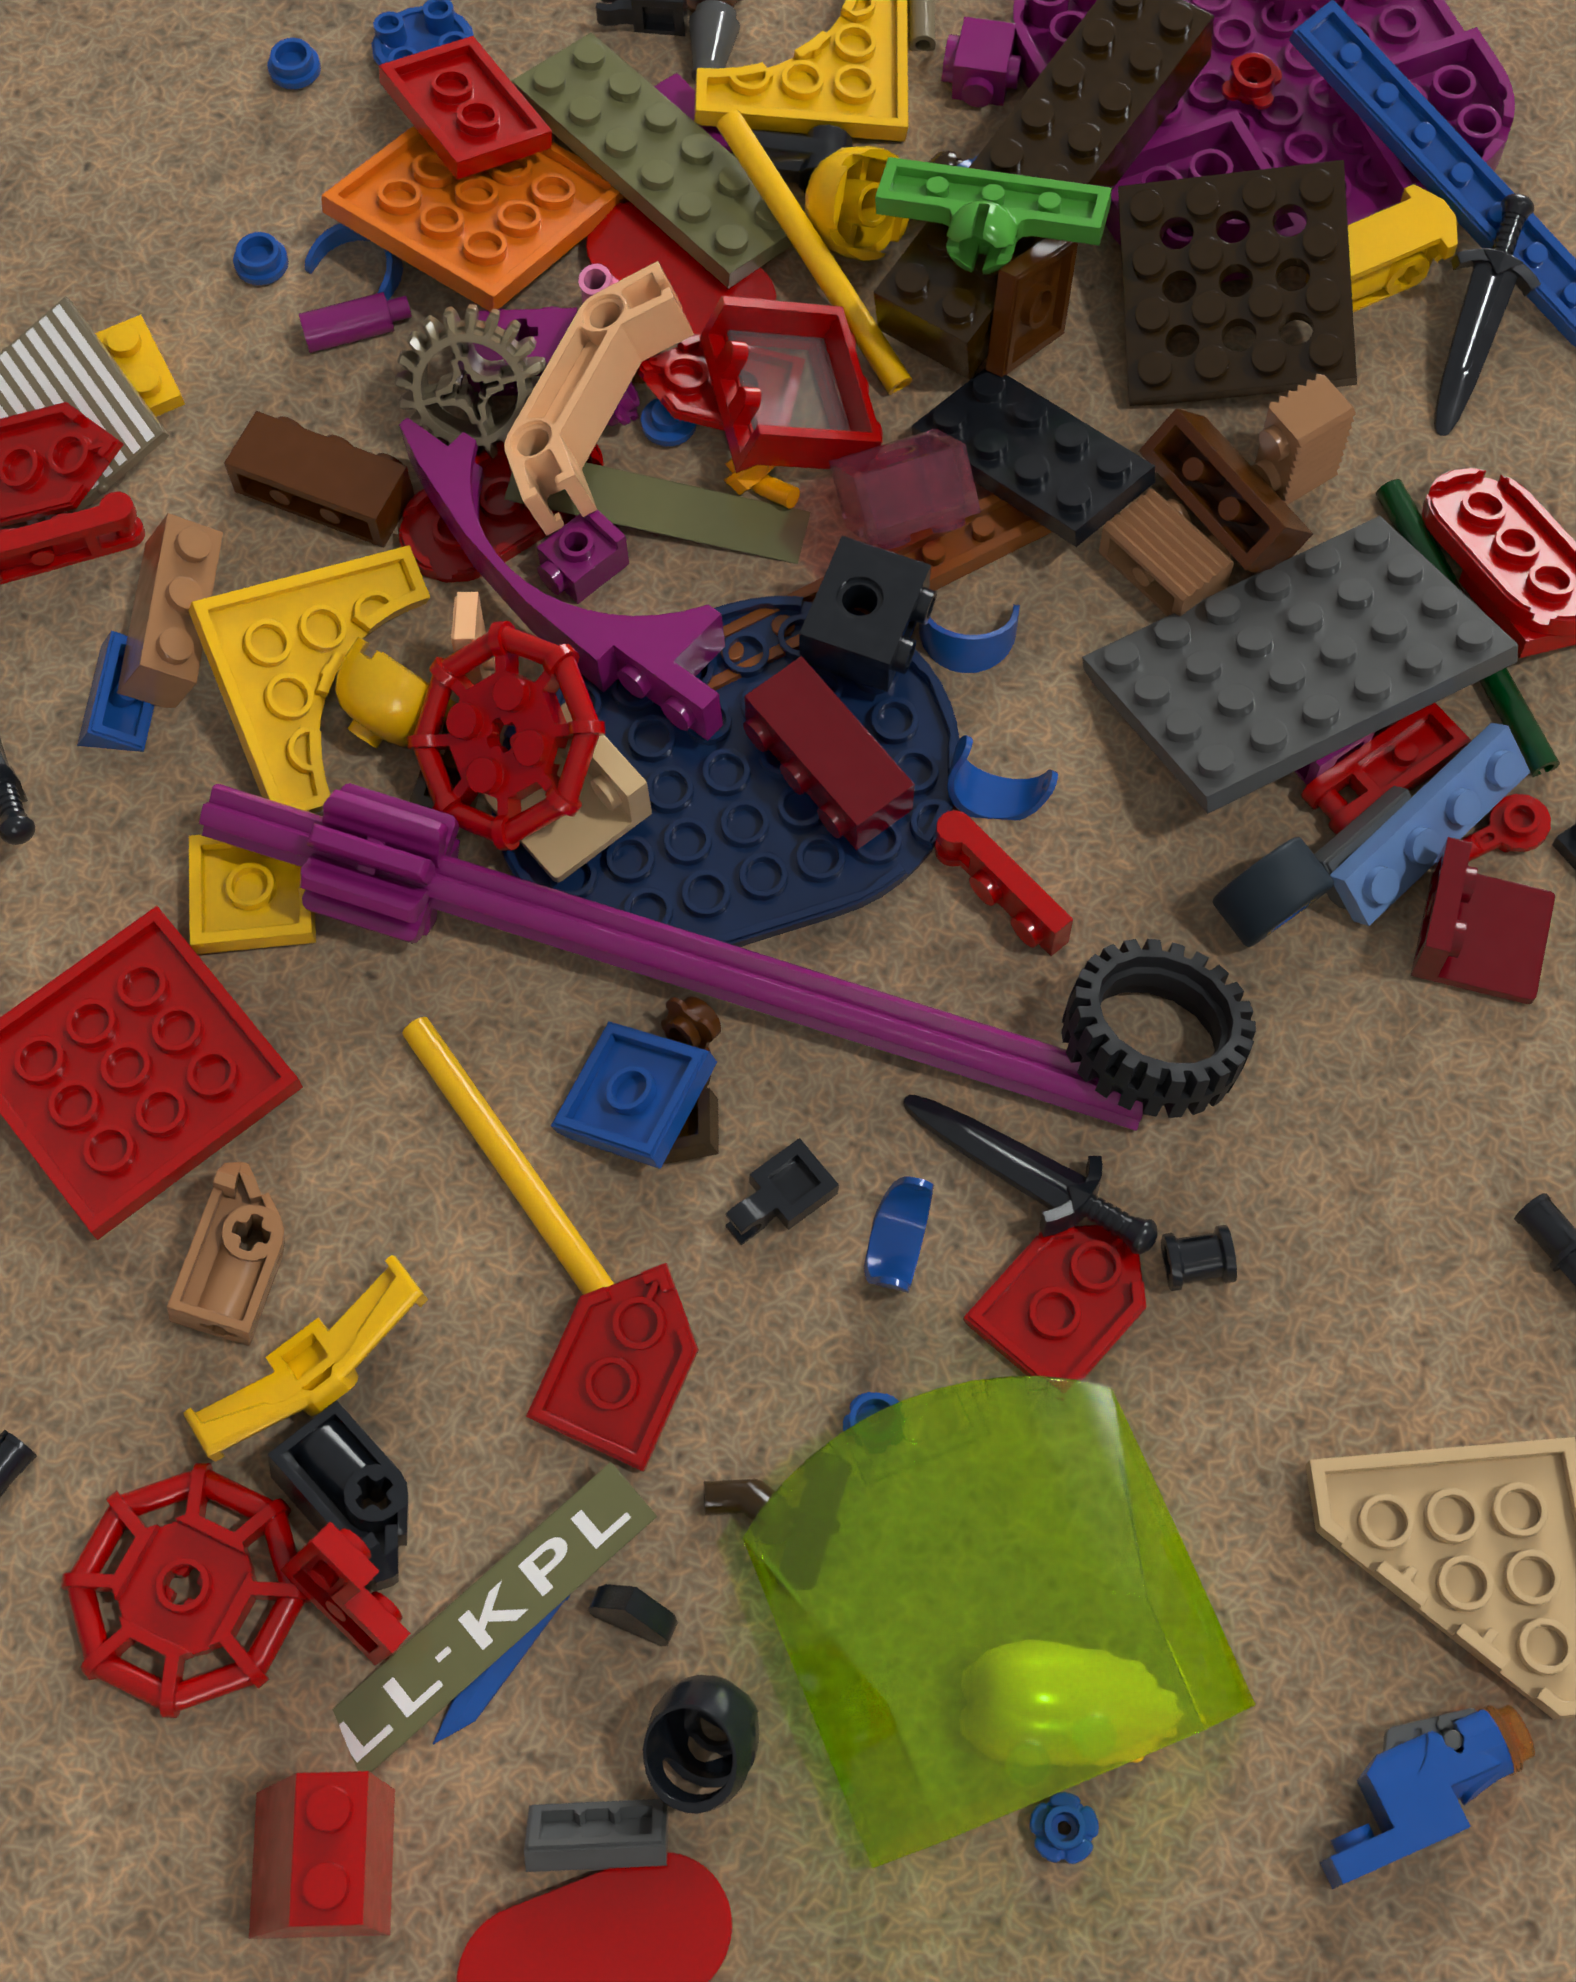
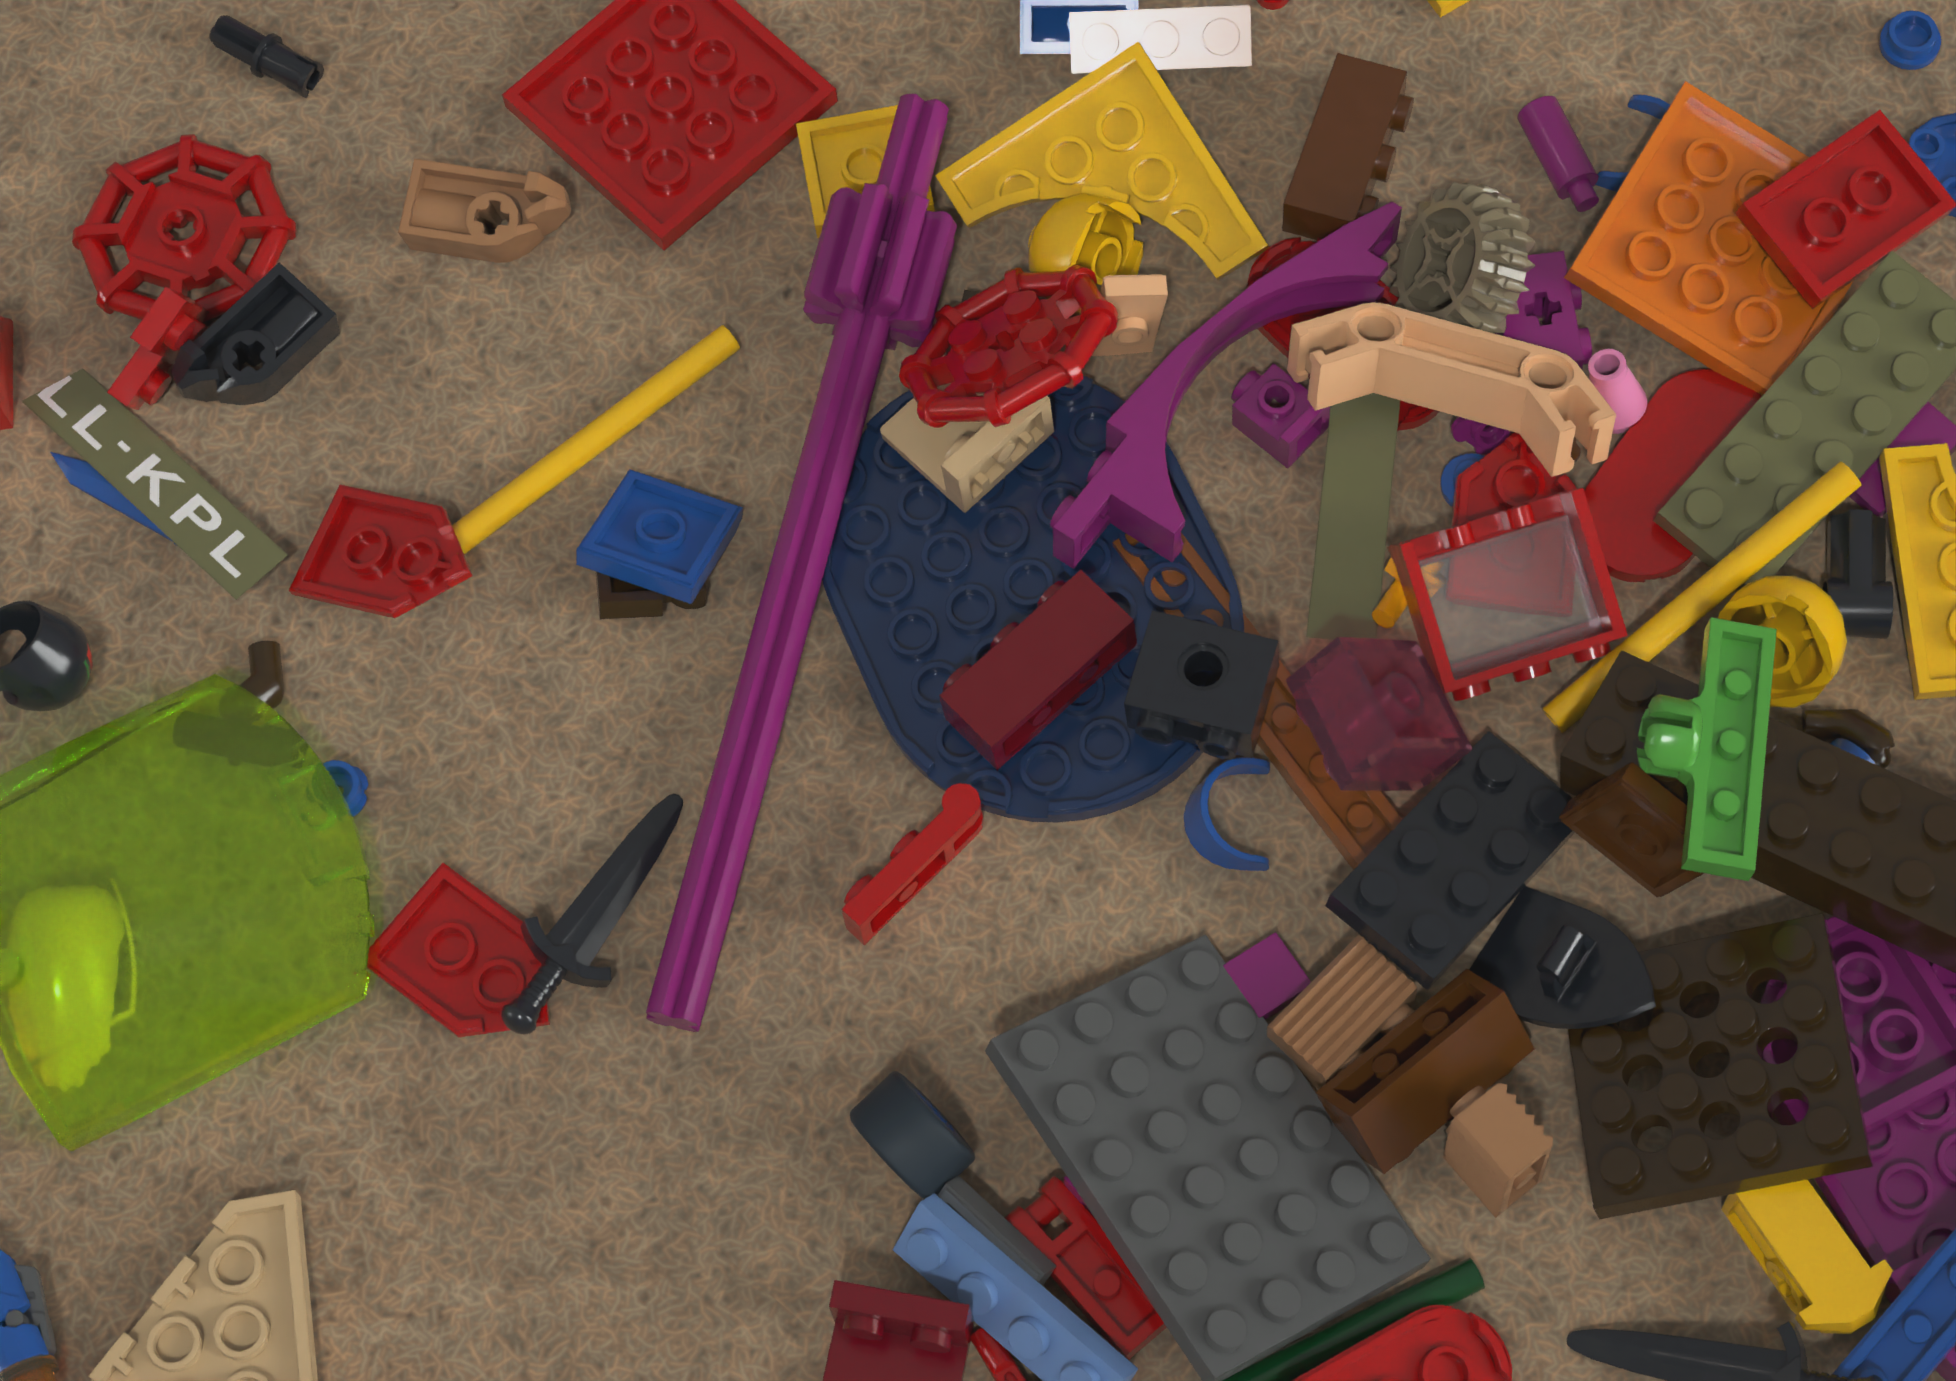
camera: 90 degrees right, 0 degrees up
(260, 259) = (1632, 52): blue plate -> none
(310, 1366) = (380, 296): yellow plate -> none
(633, 1612) = (153, 595): black tile -> none
(691, 1022) = (736, 580): reddish brown plate -> none
(785, 1187) = (568, 687): black plate -> none
(898, 1233) = (510, 795): blue helmet -> none
(993, 796) = (1033, 847): blue helmet -> none
(1120, 613) = (1268, 976): none -> magenta tile
(1138, 379) = (1564, 965): none -> black shield
(1141, 1076) = (808, 977): black tyre -> none
(1199, 1257) = (506, 1080): black bush -> none

